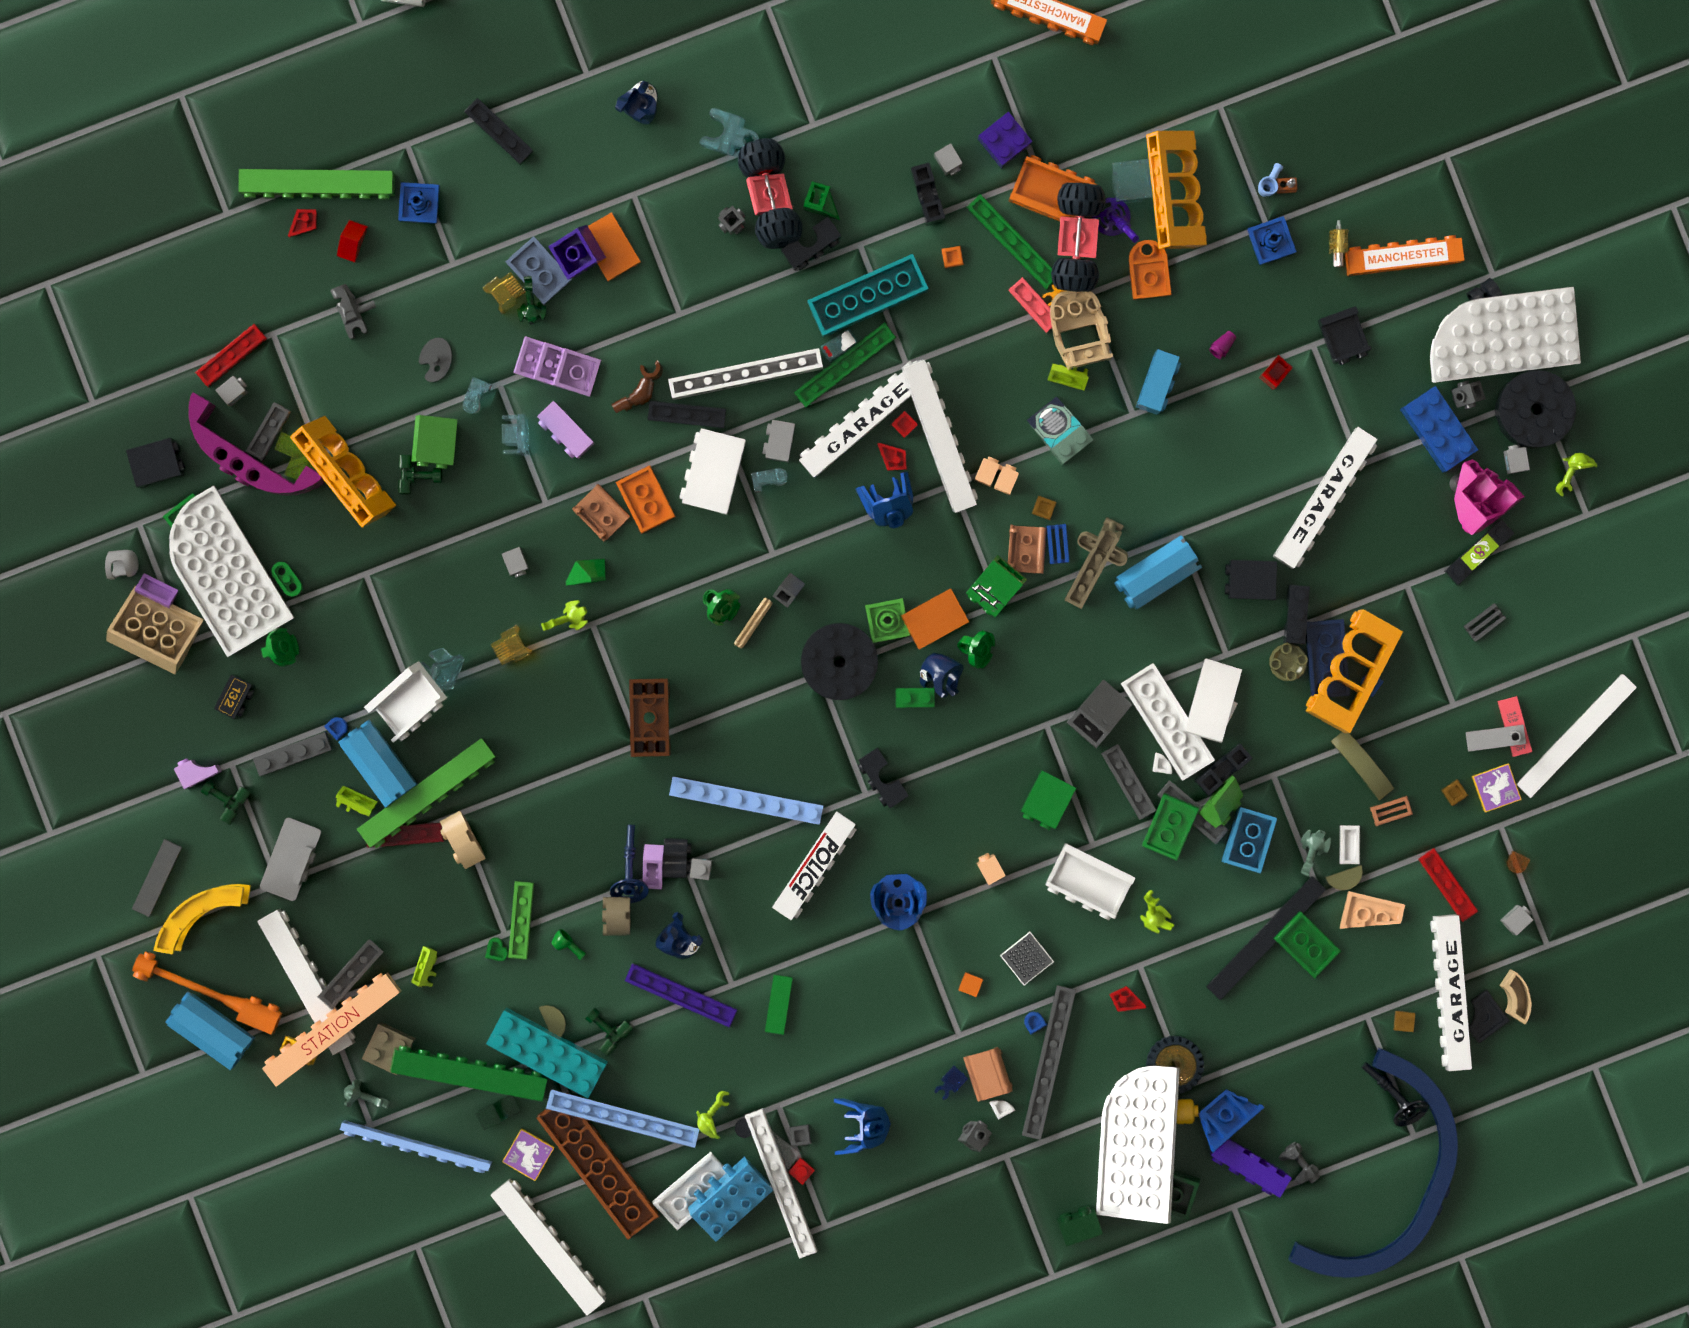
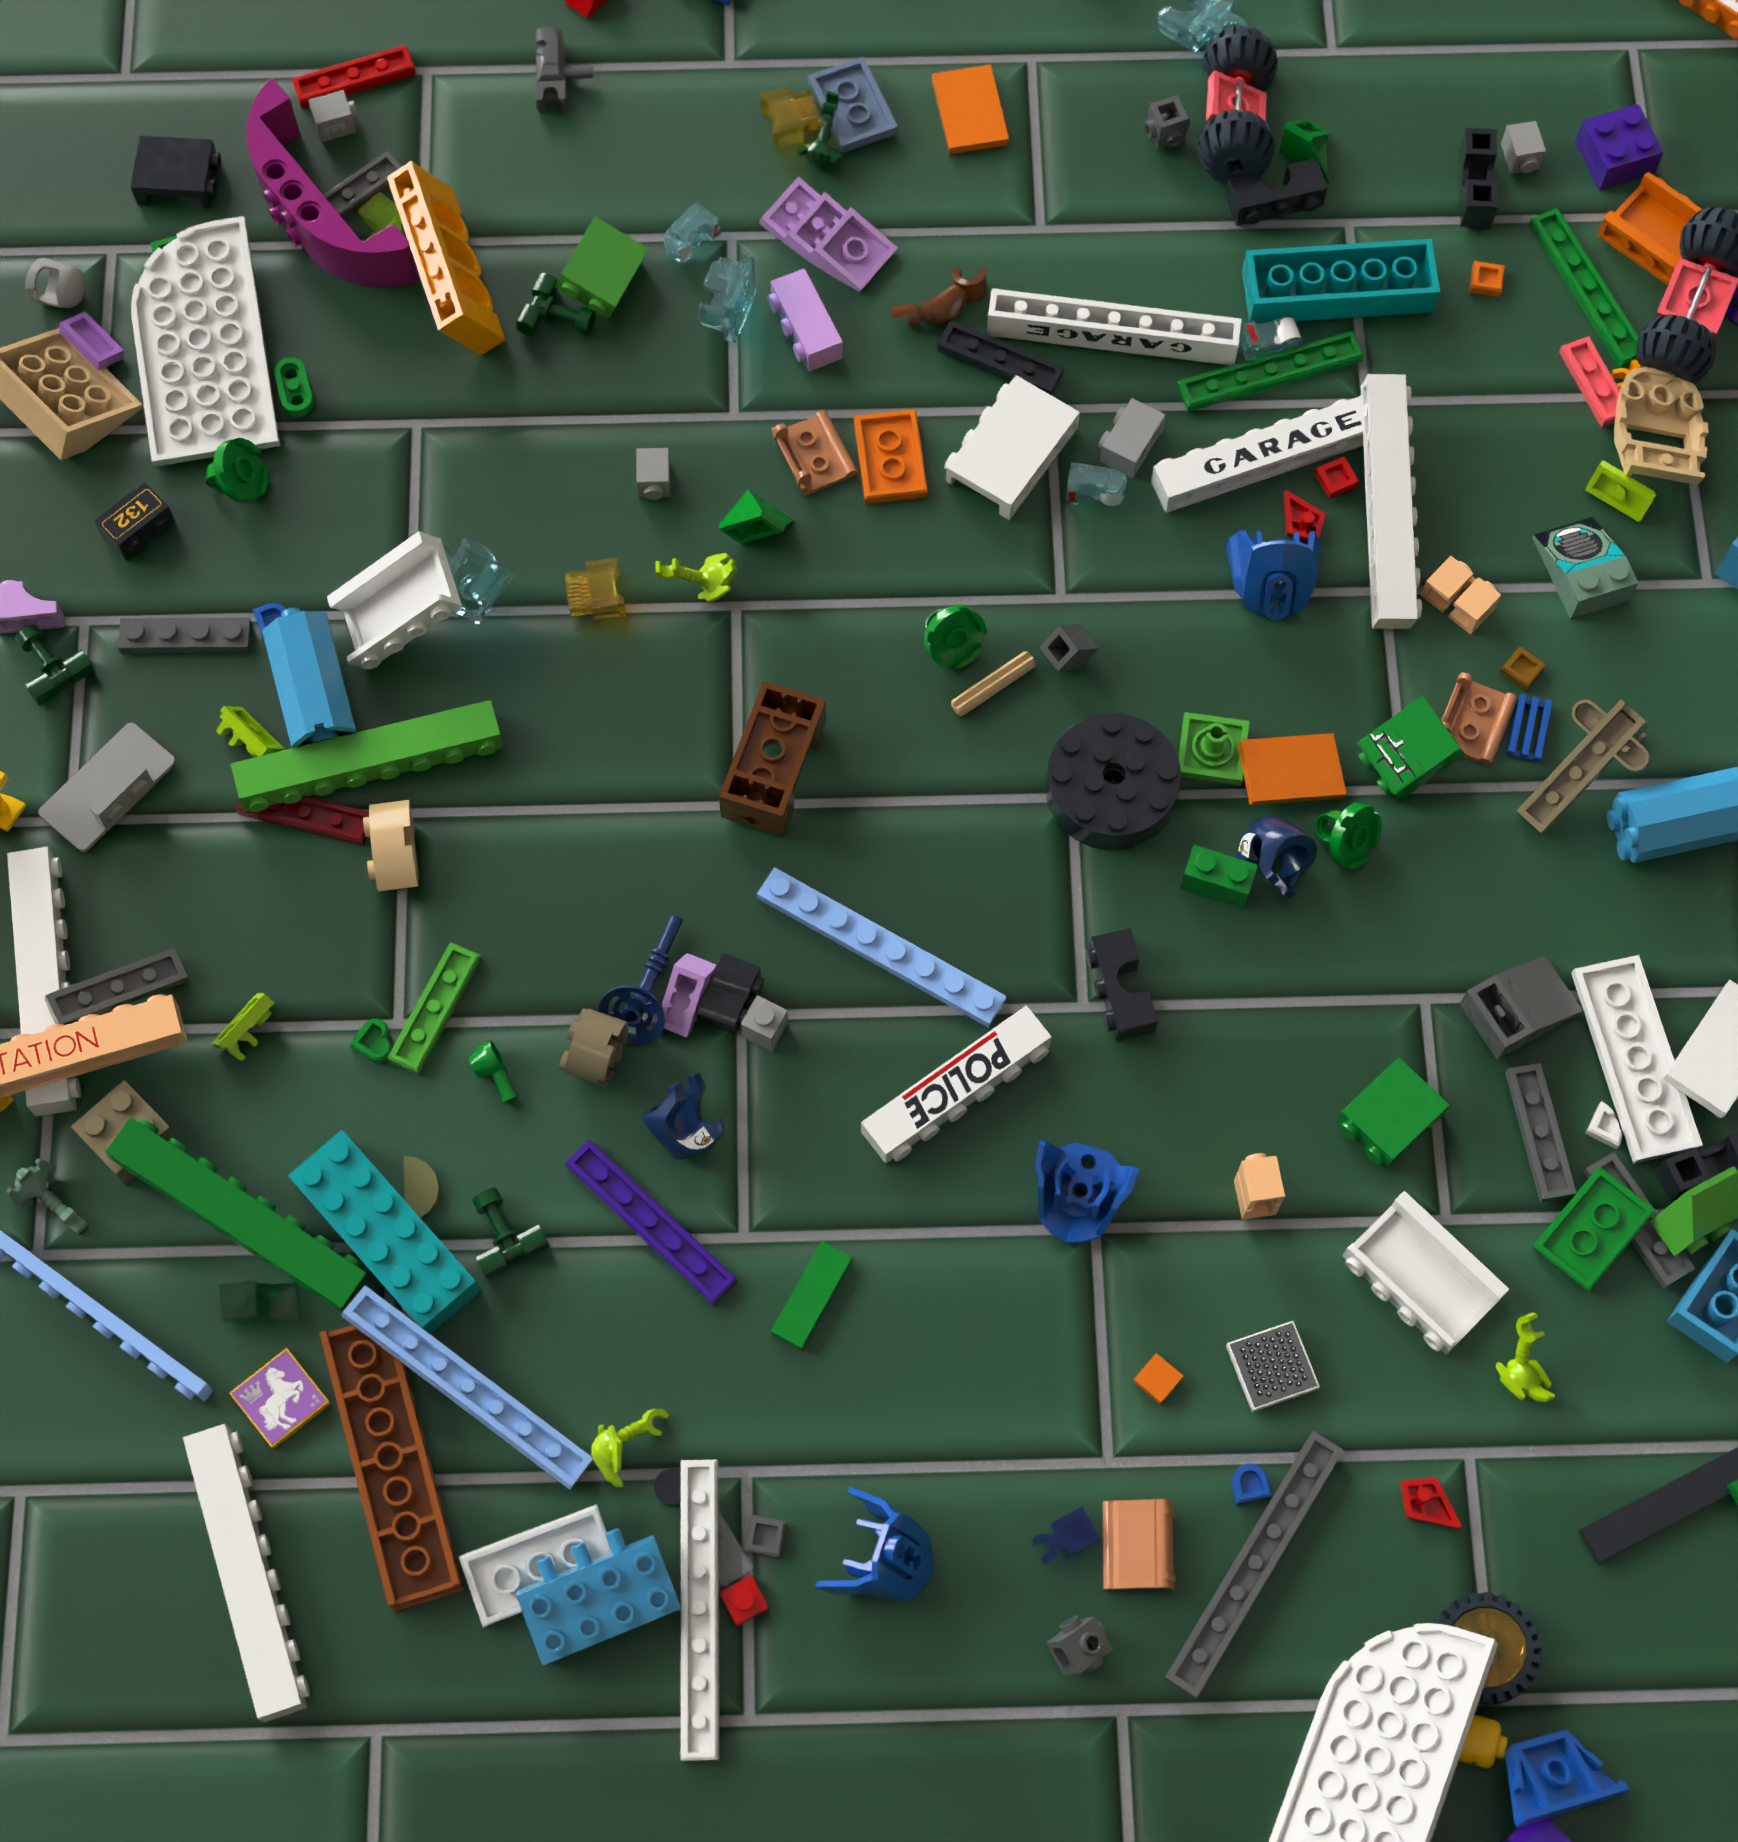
camera: 20 degrees right, 20 degrees down
(436, 353) = (651, 166): dark grey piece -> none
(577, 252) = (920, 89): dark purple brick -> none
(1001, 1108) = (1142, 1617): white tile -> none

